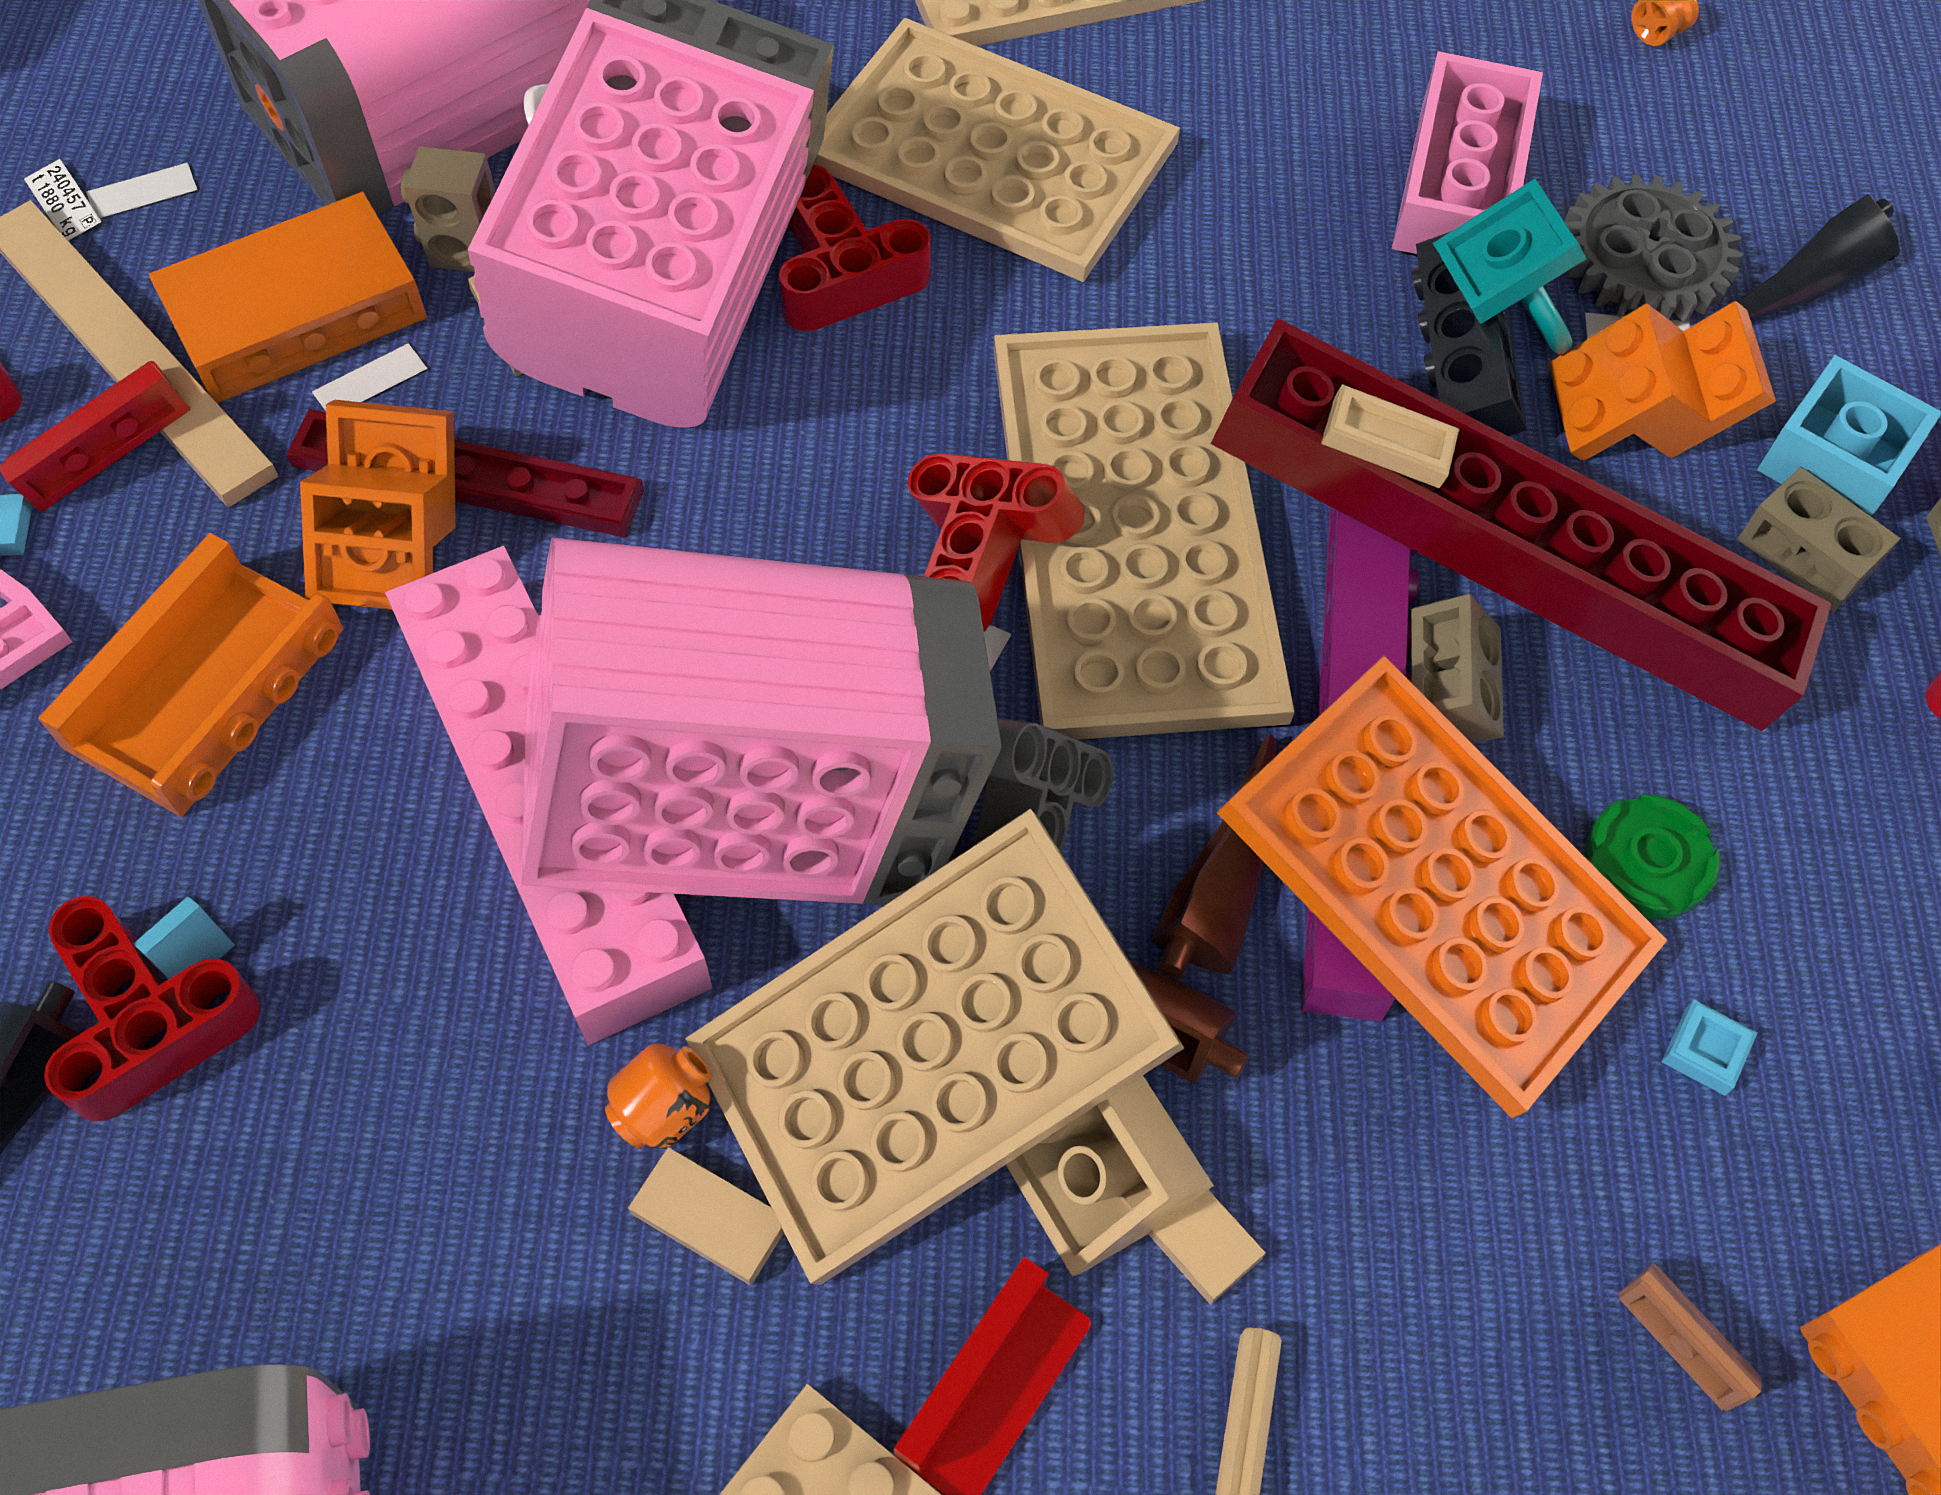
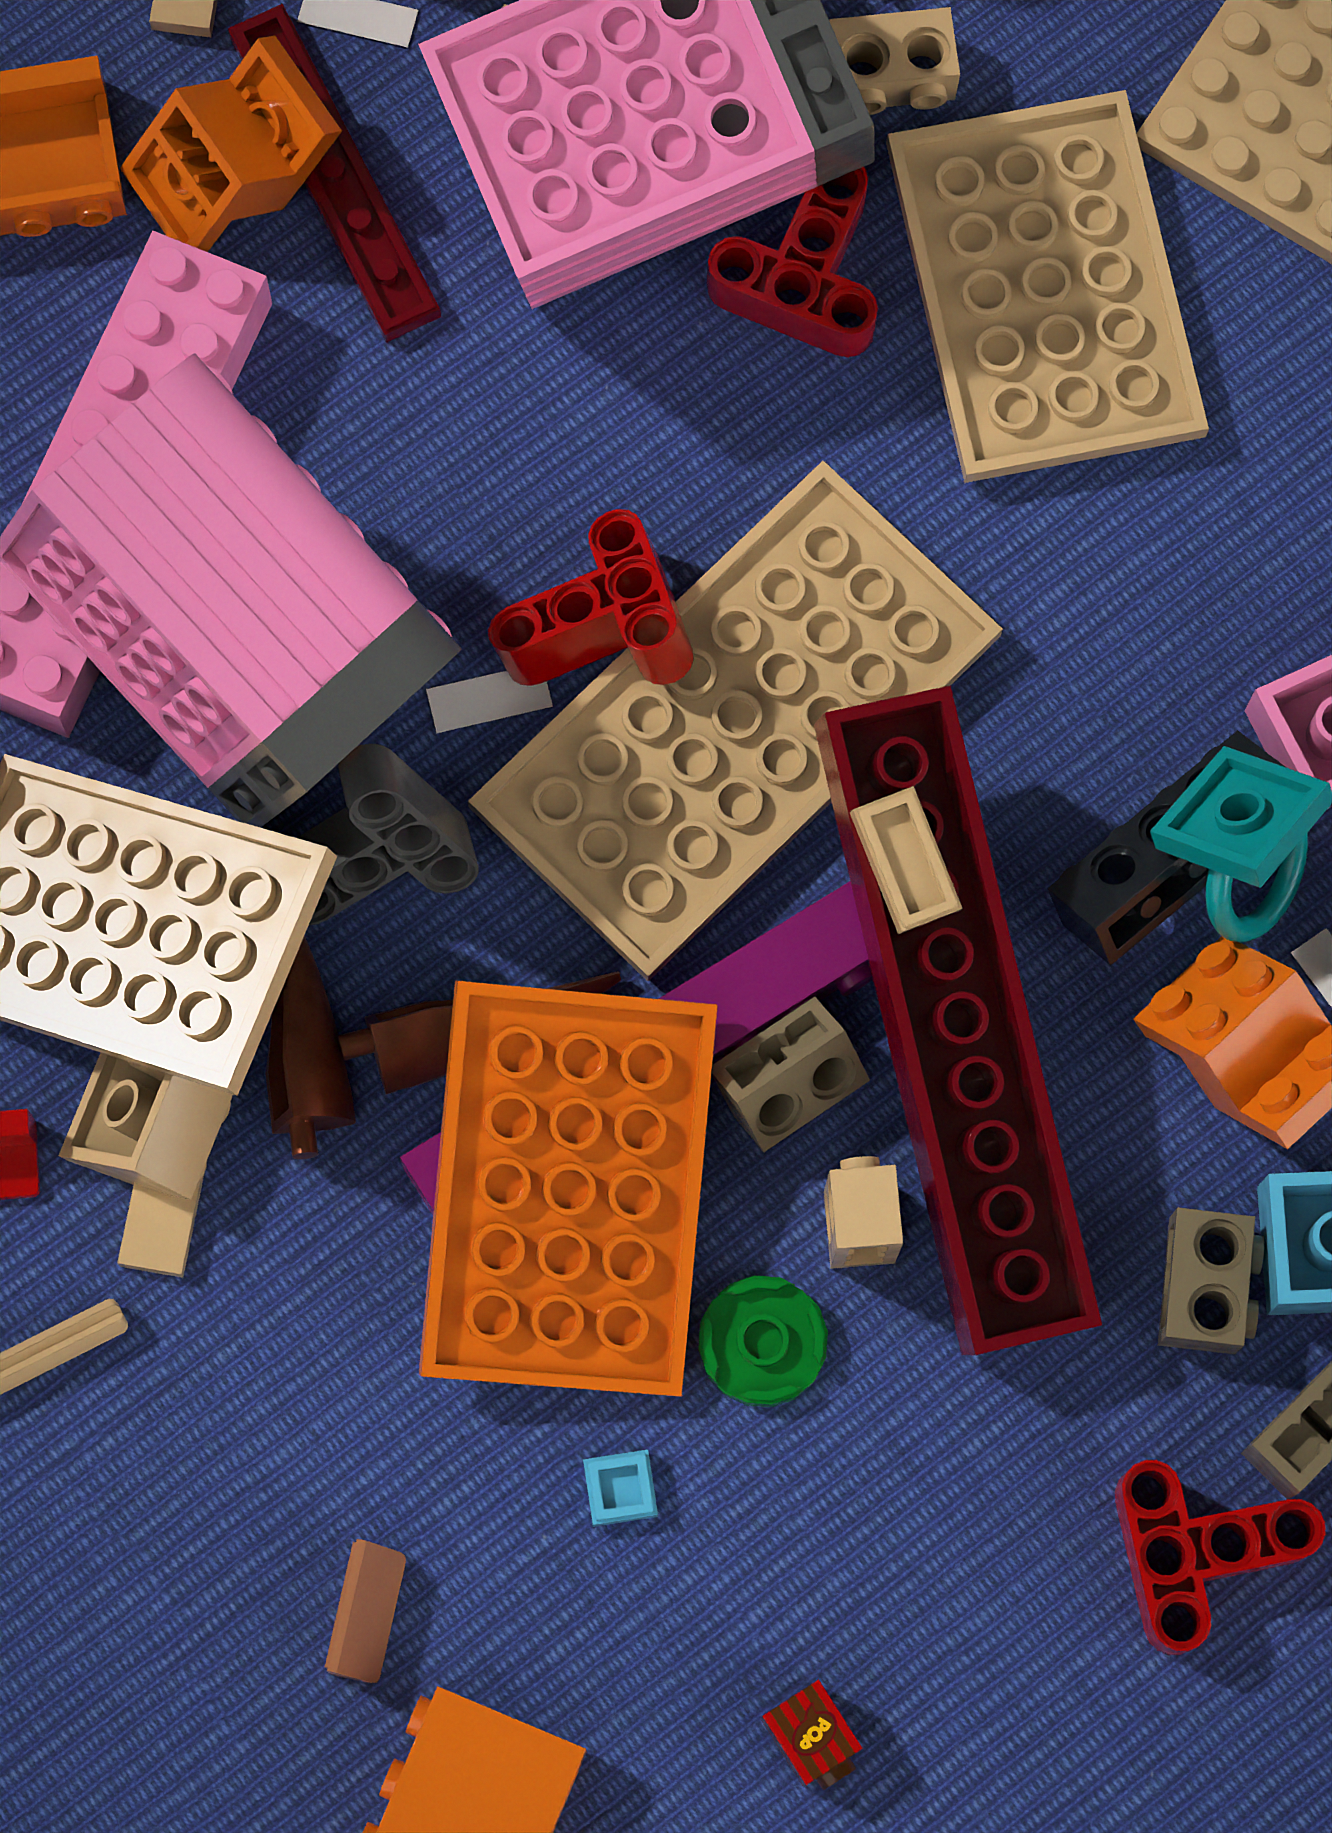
camera: 50 degrees right, 15 degrees up
(1616, 697) = (862, 1213): none -> tan brick

